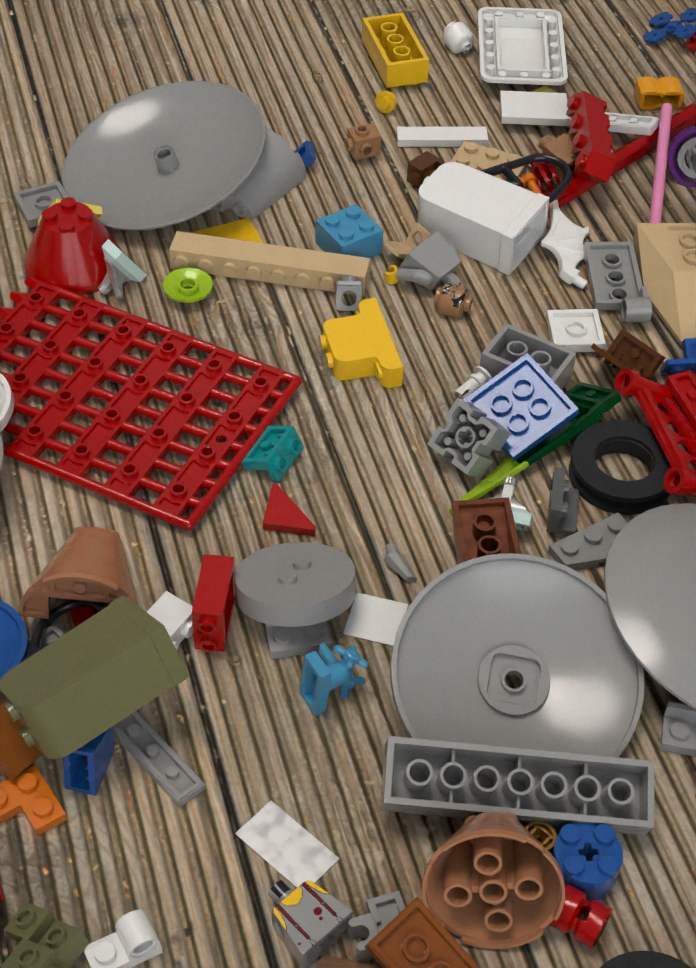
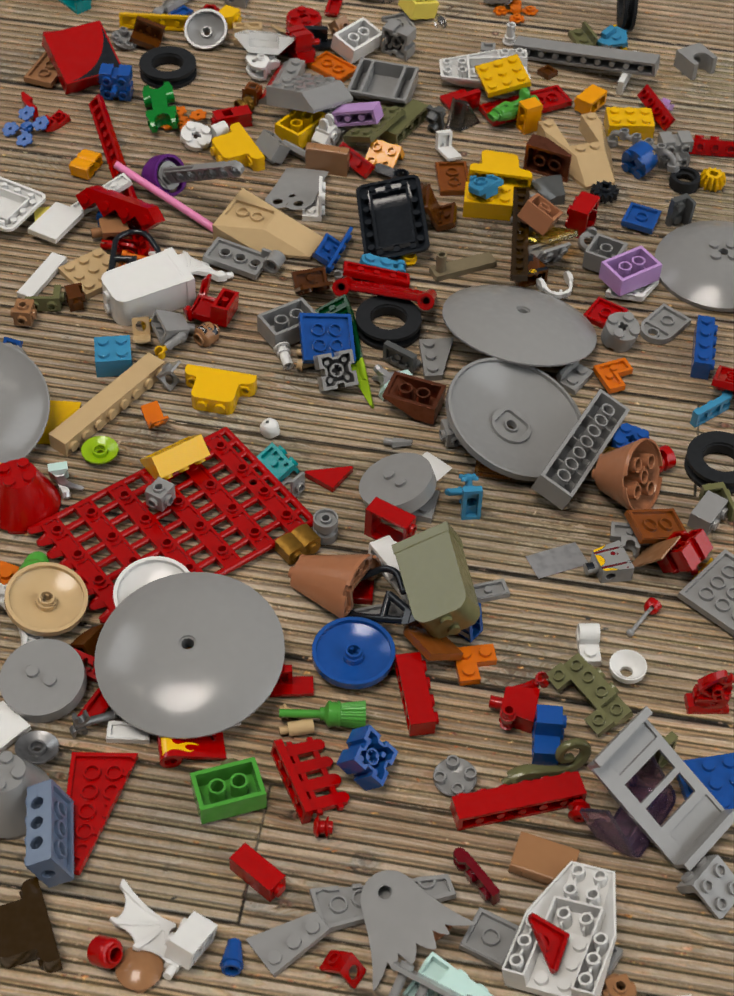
camera: 65 degrees left, 0 degrees up
(124, 352) = (160, 494): none -> light grey brick
(138, 522) = (299, 541): none -> pearl gold brick
(179, 537) = (326, 525): none -> light grey wheel
(199, 345) = (176, 457): none -> yellow slope
(240, 481) = (297, 484): none -> light grey bracket
(277, 308) = (153, 415): none -> orange bracket
(328, 420) = (269, 428): none -> white piece
(397, 156) = (49, 303): none -> olive bracket
(501, 289) = (211, 309): none -> red piece
(575, 329) = (269, 294): white plate -> none

